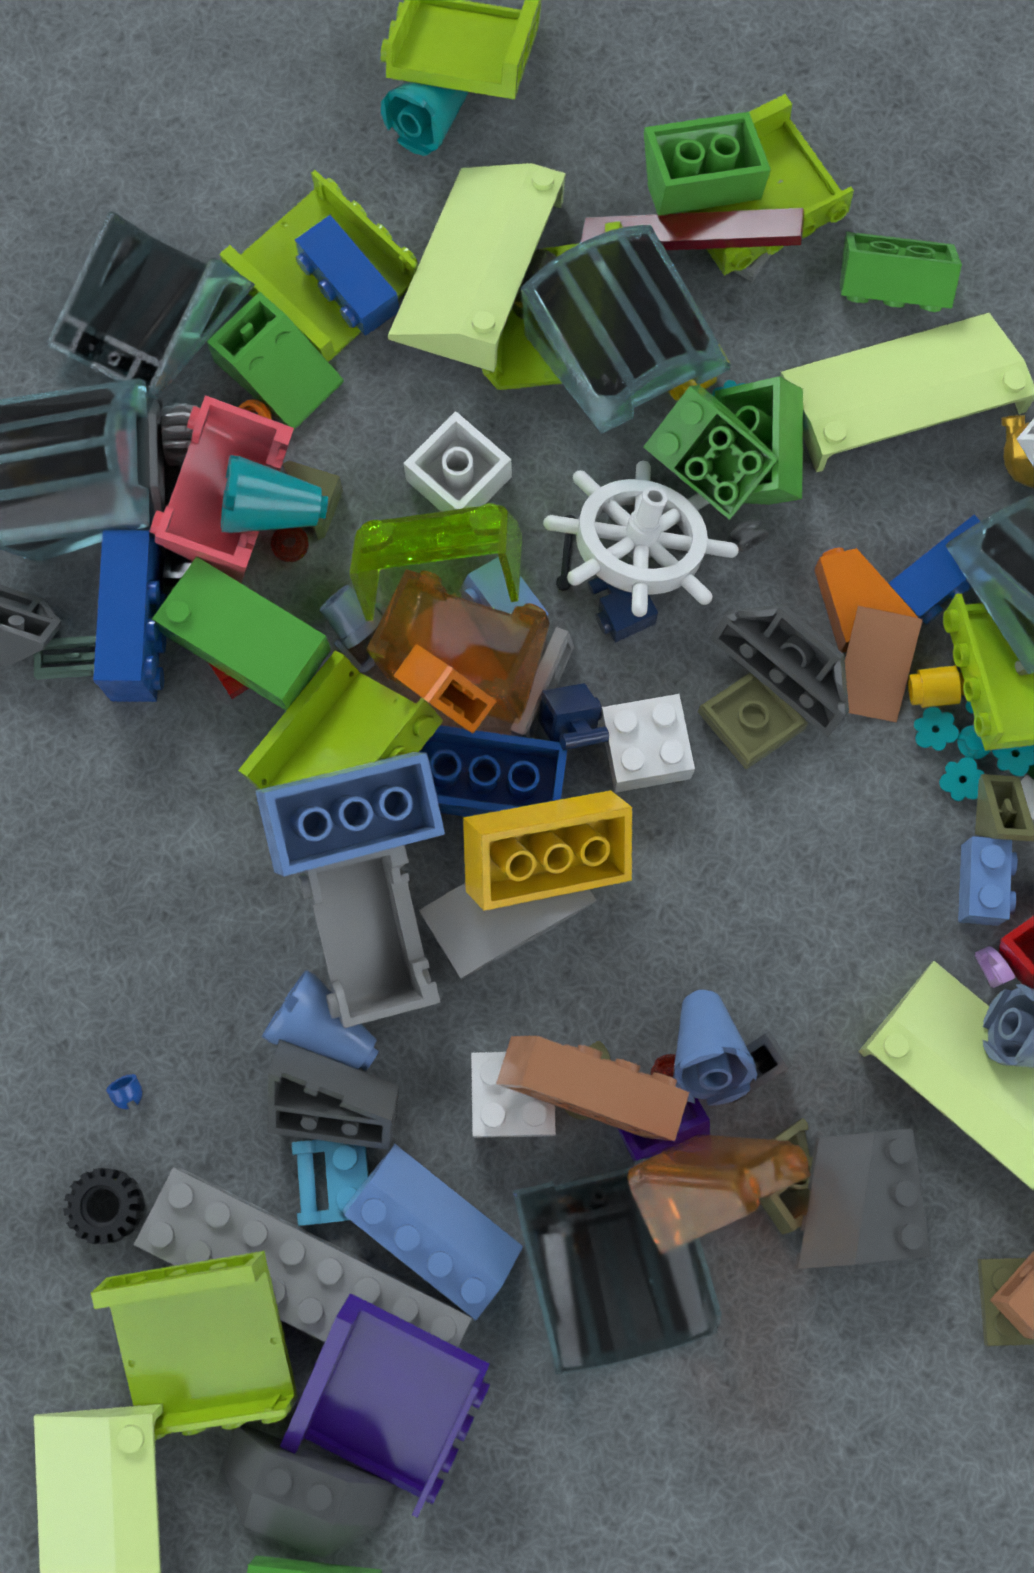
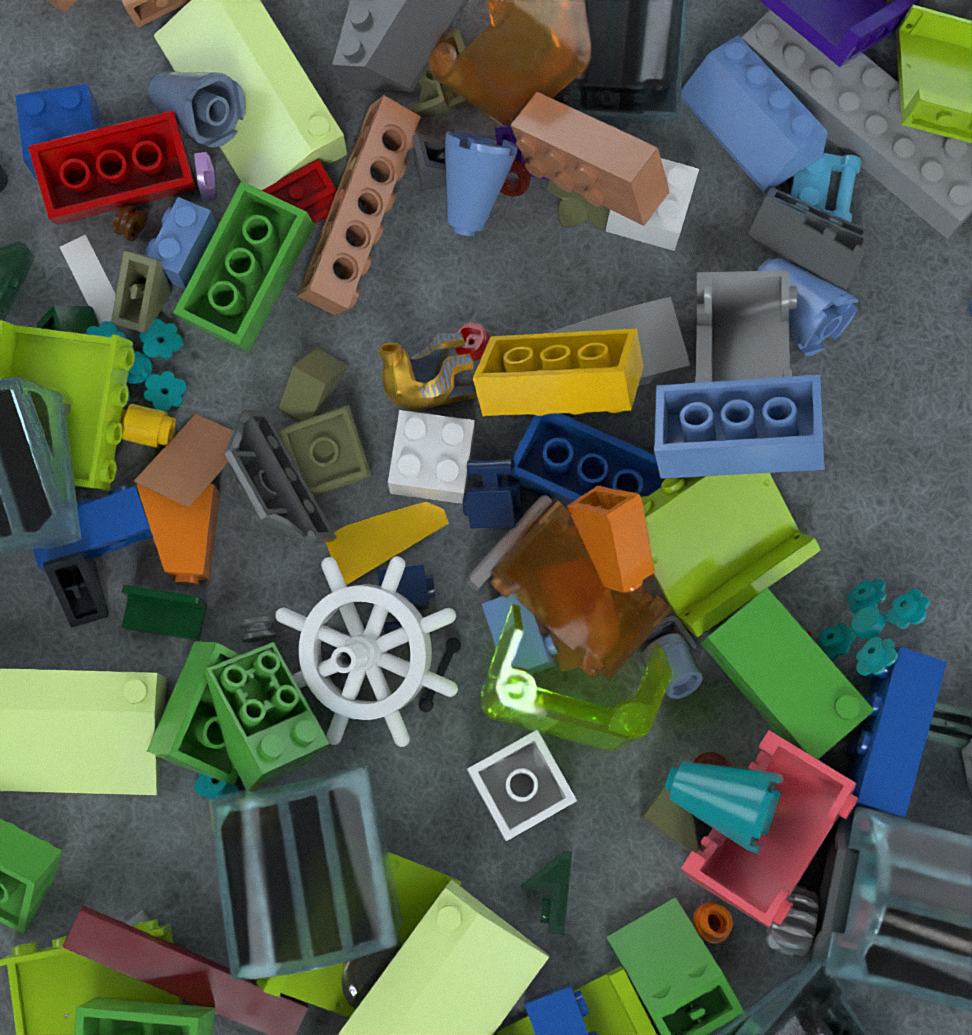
camera: 165 degrees left, 0 degrees up
(173, 709) = (870, 622): none -> teal plant
(405, 404) = (554, 878): none -> clear green slope
(650, 879) = (475, 340): none -> red tile
(669, 658) = (379, 538): none -> yellow sticker
(695, 815) = (412, 380): none -> pearl gold piece
(792, 785) = (311, 384): none -> olive slope
(833, 1000) = (320, 284): none -> nougat brick
(843, 522) = (163, 613): none -> dark green panel
(884, 974) = (307, 190): none -> red plate
(909, 871) = (244, 267): none -> bright green brick
(931, 516) = (77, 588): none -> black slope

